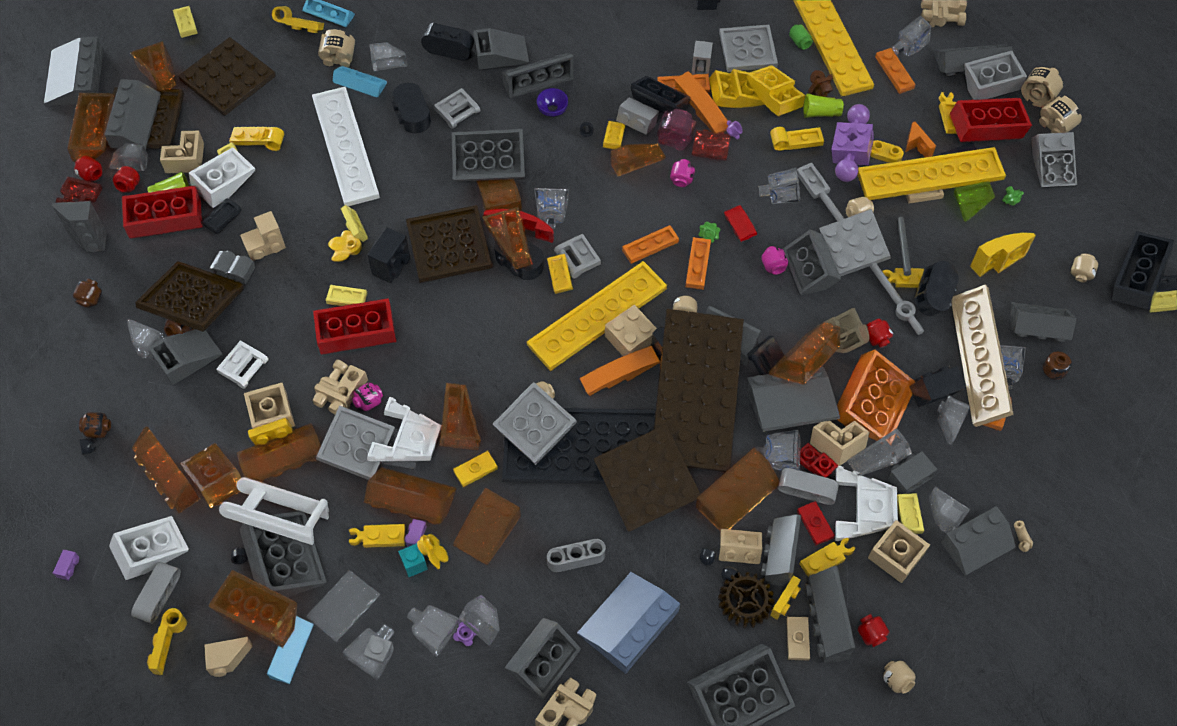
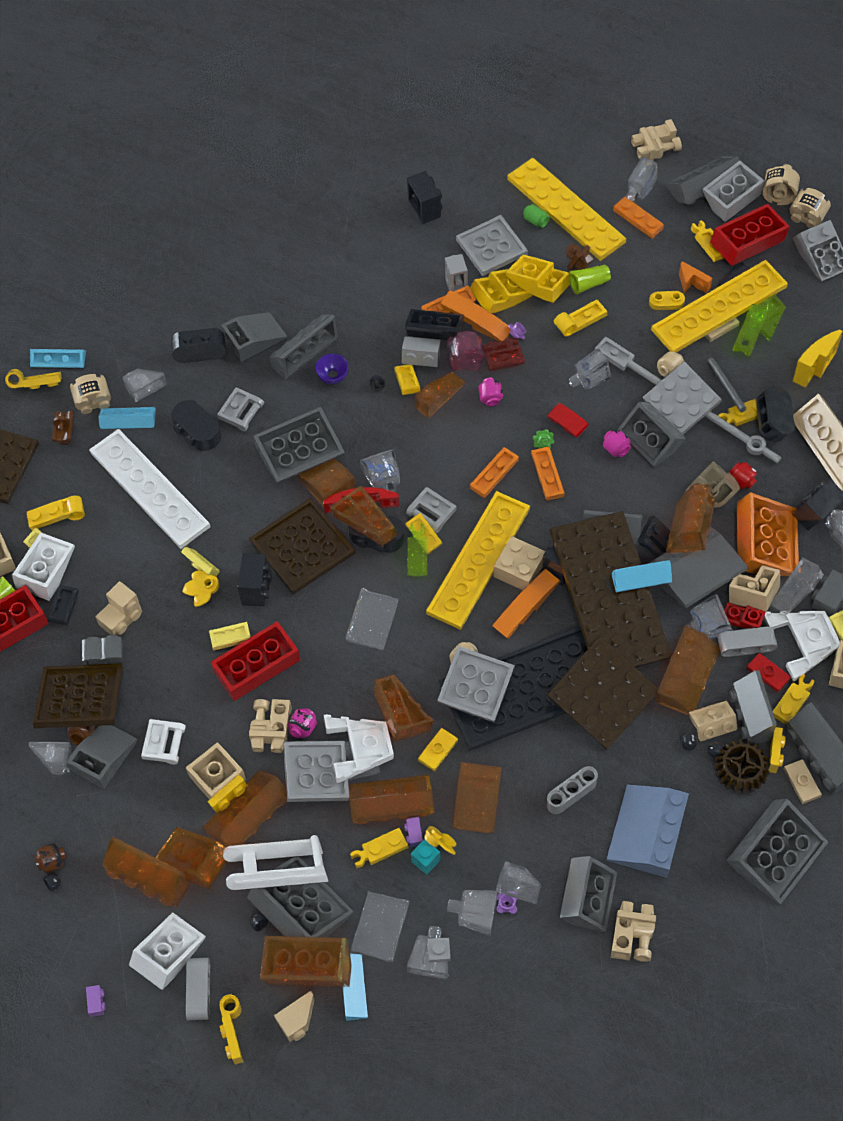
camera: 20 degrees left, 0 degrees up
(299, 68) = (62, 427): none -> reddish brown hips
(477, 331) = (371, 619): none -> clear piece
(545, 287) = (417, 553): none -> clear neon green plate
(685, 303) = (556, 518): tan head -> none
(733, 385) = (642, 576): none -> medium azure slope
(852, 143) = (635, 303): medium lavender brick -> none
(950, 204) = (751, 329): none -> clear neon green plate
(1012, 196) = (801, 300): bright green plant -> none

